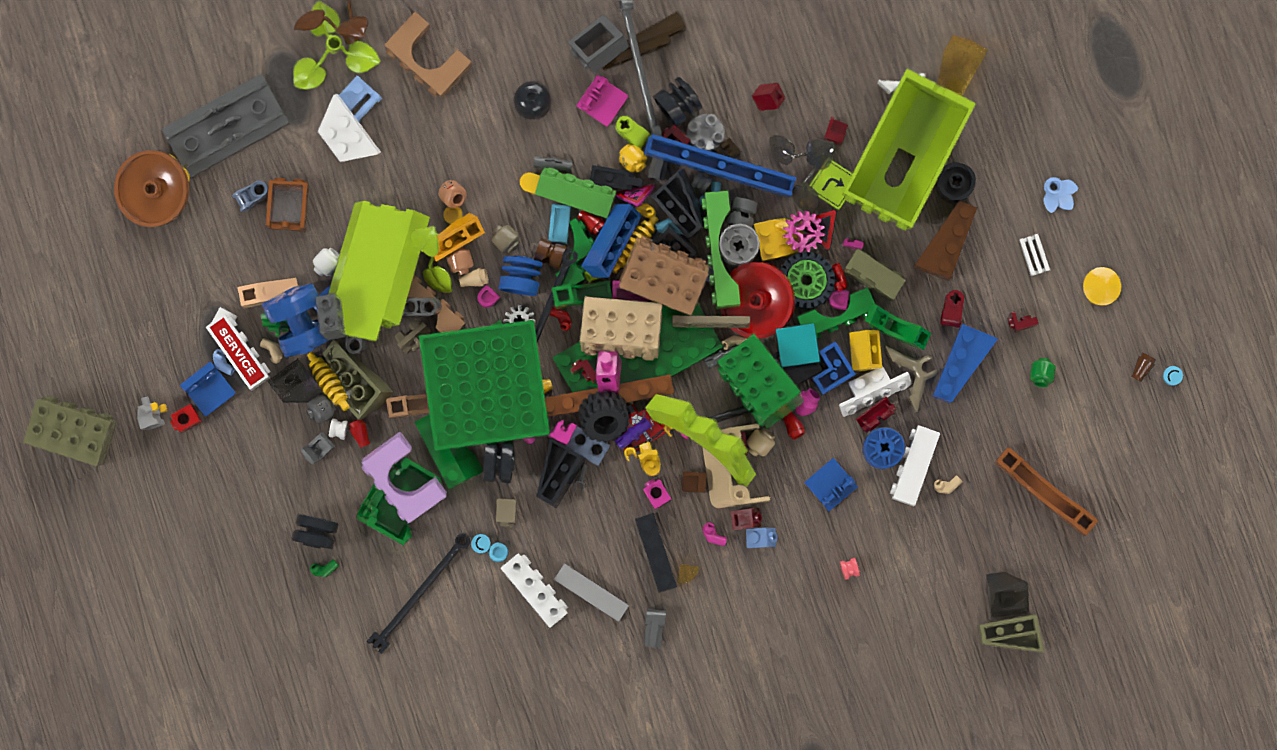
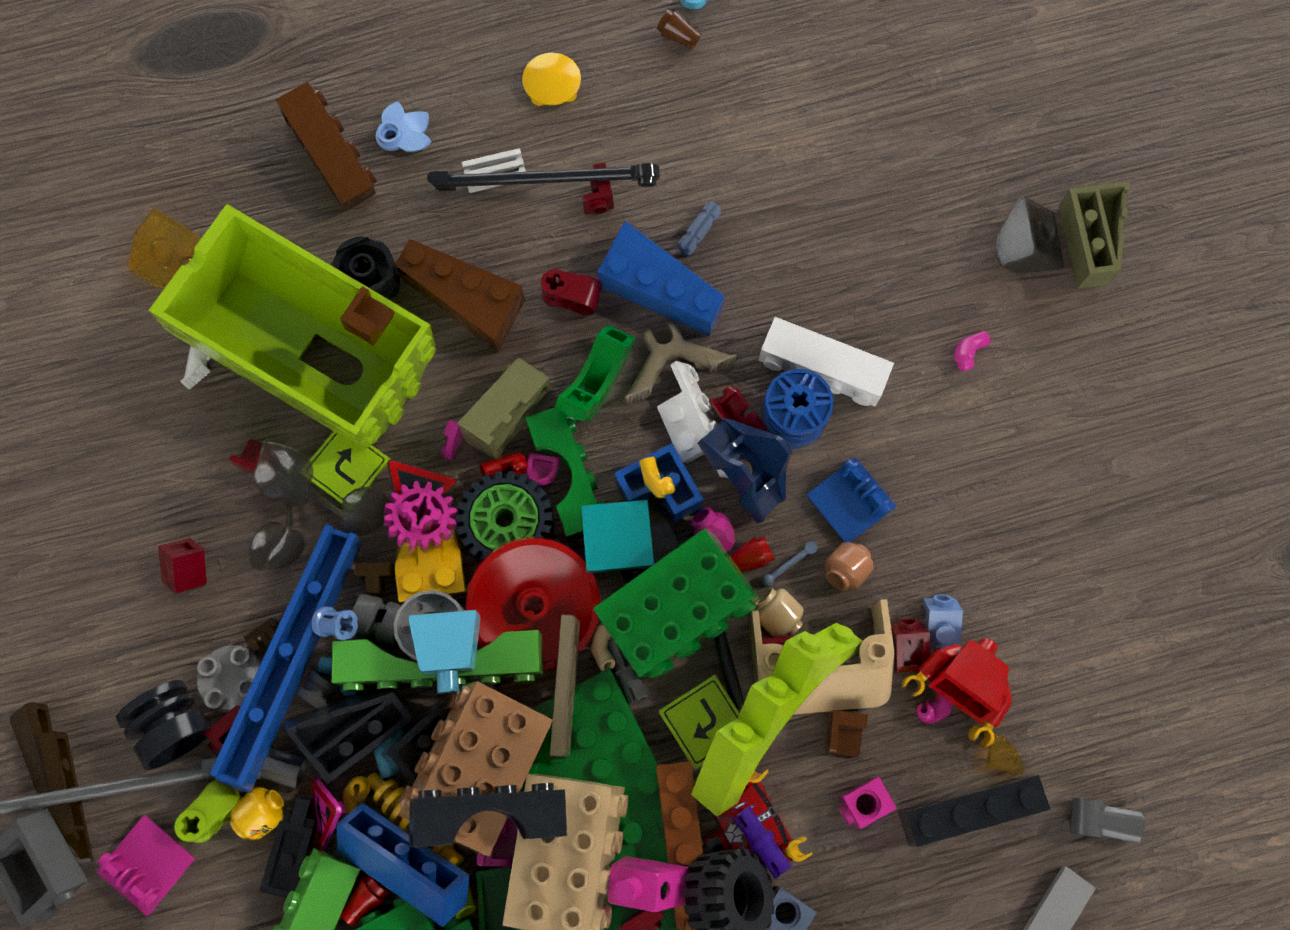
camera: 85 degrees left, 10 degrees down
(642, 308) = (535, 813): none -> black arch
(649, 459) = (809, 813): yellow hips -> none
(700, 397) = (698, 716): none -> lime piece
(727, 254) = (446, 645): none -> medium azure torso
(727, 552) = (970, 680): none -> red torso
(738, 190) = (331, 626): none -> medium blue bush
(769, 208) = (375, 575): none -> dark brown tile
(780, 436) = (809, 549): none -> sand blue hinge
(790, 482) = (848, 566): none -> nougat head
(826, 367) = (652, 479): none -> yellow arm
(849, 568) = (993, 477): coral wheel -> none
(859, 411) = (764, 451): none -> dark blue piece
(865, 350) = (630, 428): yellow brick -> none
(911, 192) = (366, 317): none -> reddish brown panel
(932, 554) = (967, 347): none -> dark pink arm
(947, 487) = (857, 319): tan arm -> none
(1002, 386) = (699, 228): none -> sand blue axle
(1027, 350) = (644, 173): none -> black hinge
(1038, 149) = (325, 145): none -> reddish brown wedge
(1042, 372) = (681, 166): green head -> none
(1050, 496) = (845, 197): dark orange arch -> none

